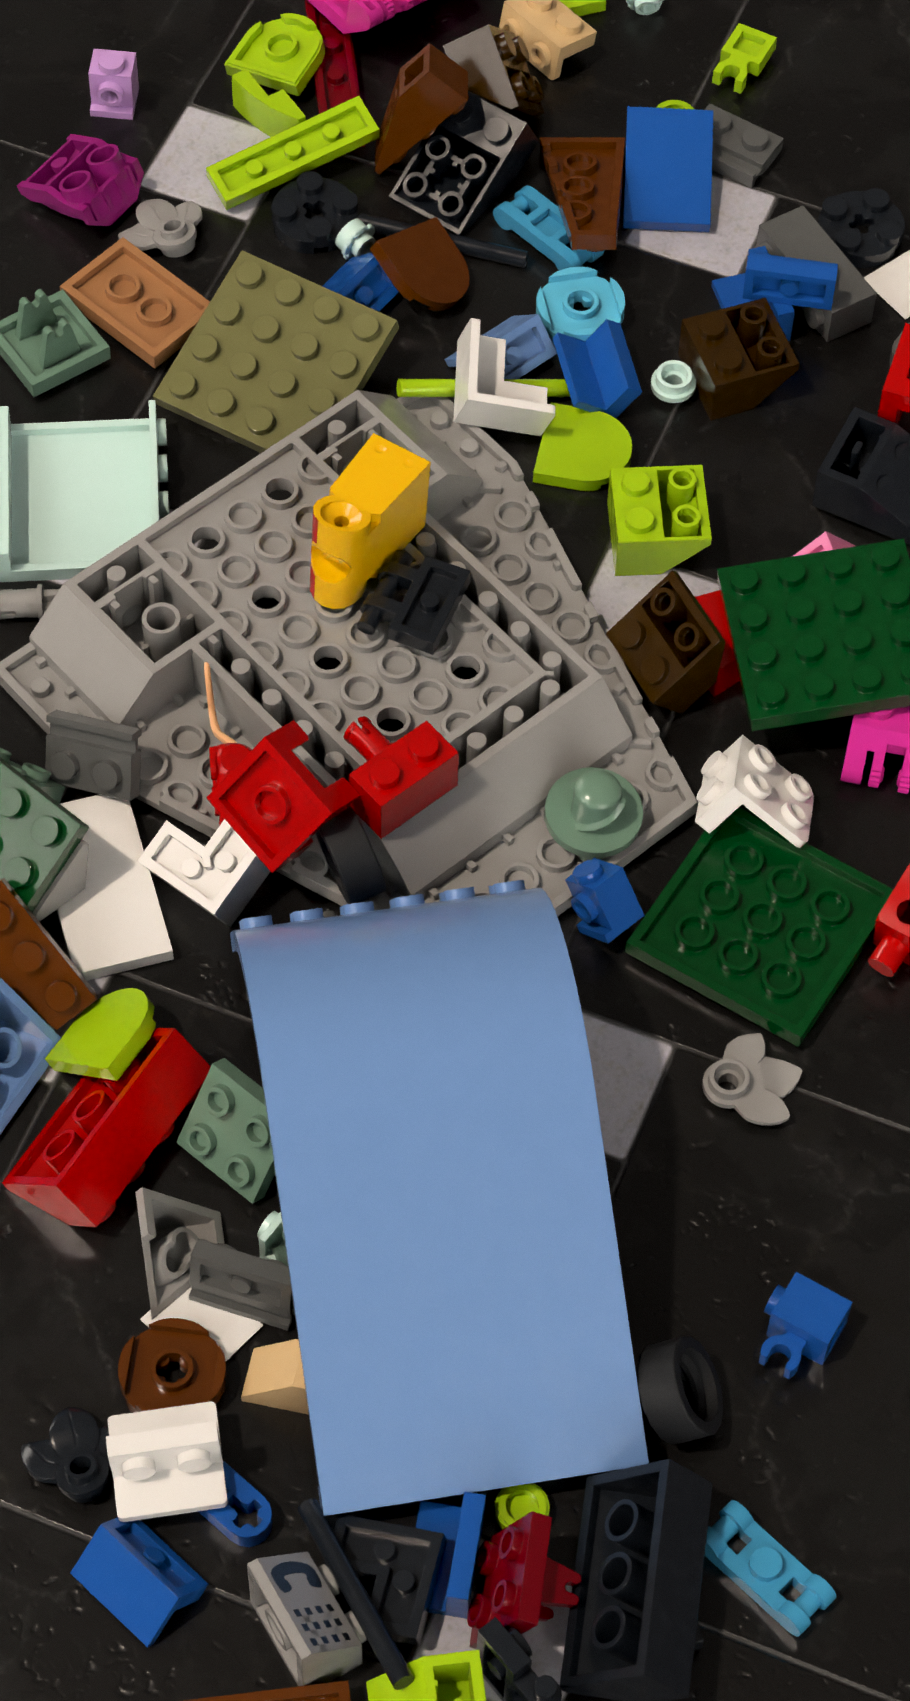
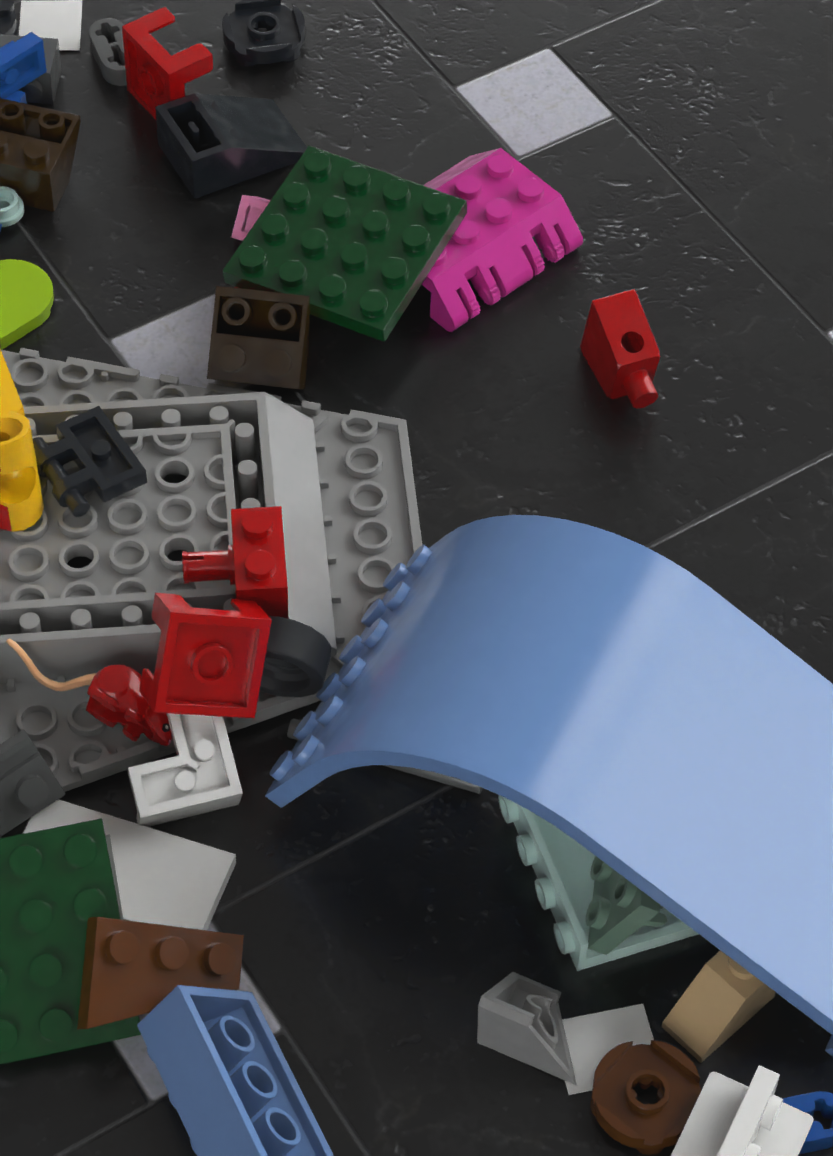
camera: 55 degrees left, 5 degrees down
(106, 1036) = (288, 948): lime tile -> none
(107, 1132) = (370, 1003): red slope -> none
(231, 1131) = (464, 900): sand green plate -> none
(241, 1284) = (610, 985): dark grey plate -> none
(593, 813) = (366, 483): sand green plate -> none
(603, 899) = (438, 516): blue brick -> none
(656, 517) = (124, 288): lime slope -> none
(753, 778) = (422, 381): white bracket -> none
(758, 1081) = (677, 536): light grey plate -> none
(760, 924) = (543, 444): dark green plate -> none

